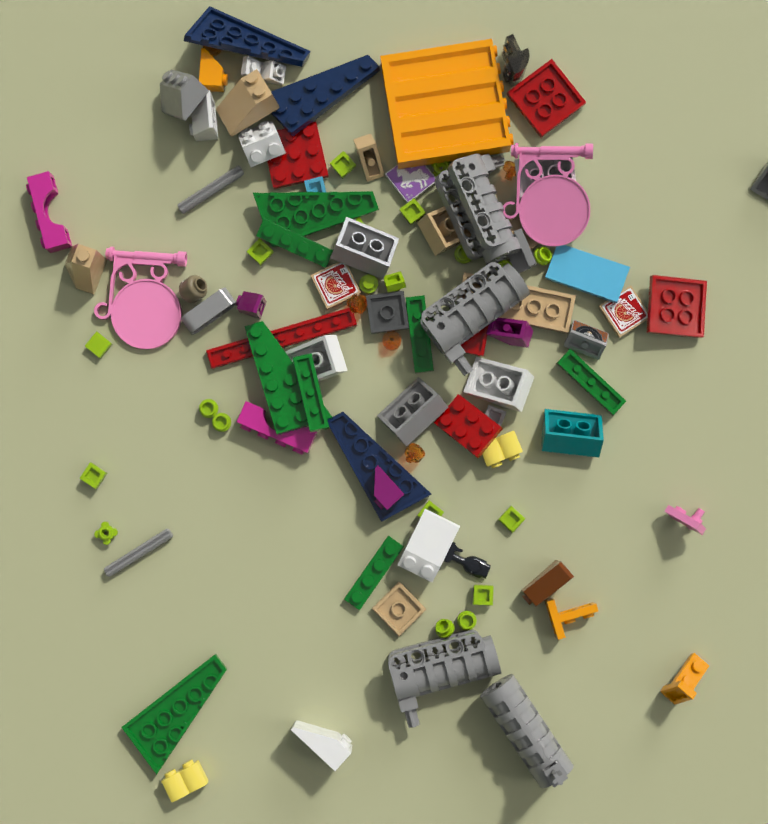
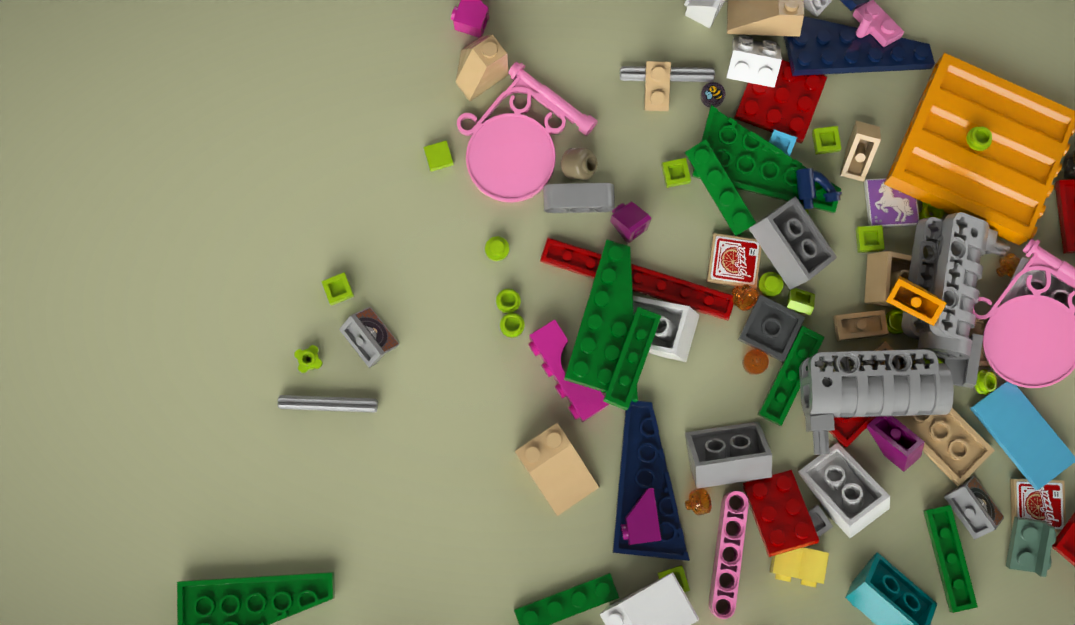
camera: 30 degrees right, 5 degrees down
(134, 492) = (368, 336): none -> light grey panel
(178, 379) = (496, 248): none -> lime plate
(209, 202) = (657, 86): none -> tan plate
(249, 183) = (713, 94): none -> tile
(311, 494) = (556, 469): none -> tan slope
(324, 63) = (876, 22): none -> bright pink plate
(346, 201) = (806, 187): none -> dark blue plant
(438, 100) = (979, 138): none -> lime plate
(442, 272) = (860, 325): none -> tan plate
(453, 463) = (731, 567): none -> bright pink beam
(462, 236) = (916, 300): none -> light orange slope
(634, 340) = (1031, 546): none -> sand green bracket

